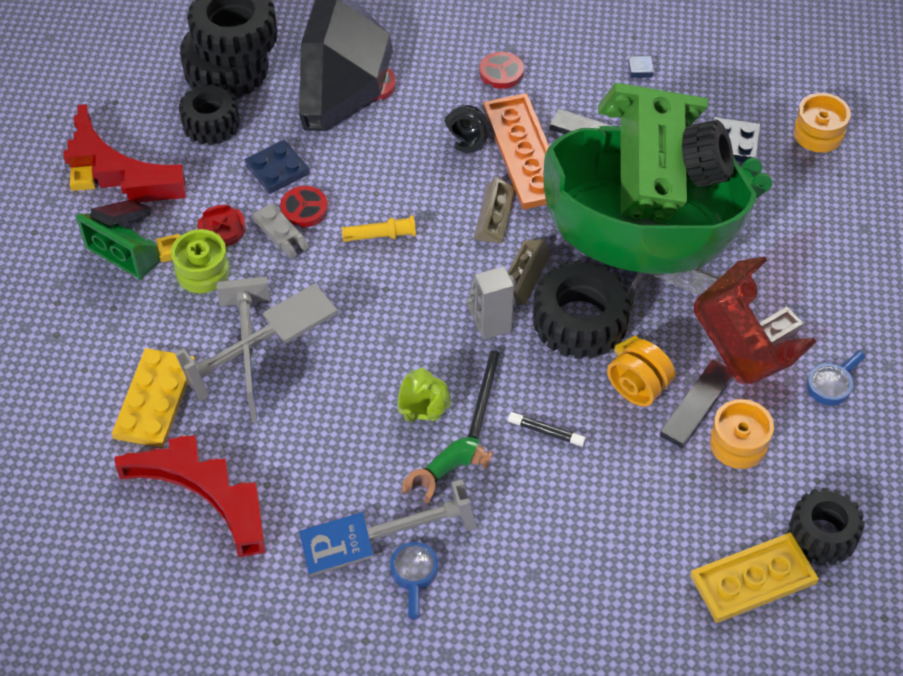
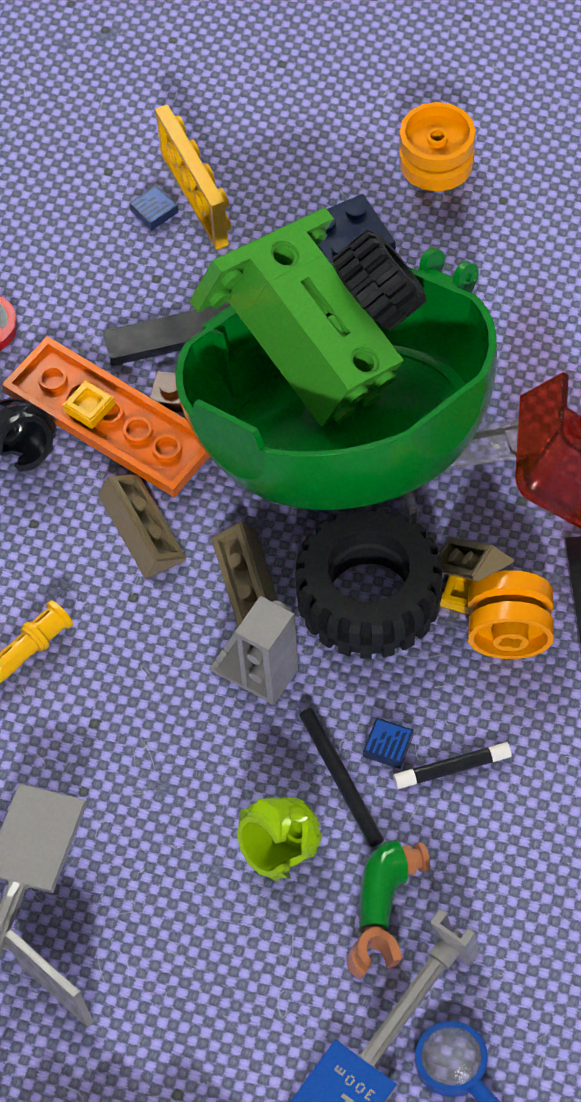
camera: 35 degrees left, 5 degrees up
(516, 136) = (89, 404): none -> yellow tile
(523, 395) = (388, 743): none -> tile
(643, 330) = (472, 559): none -> dark tan slope
(672, 59) = (193, 177): none -> yellow plate

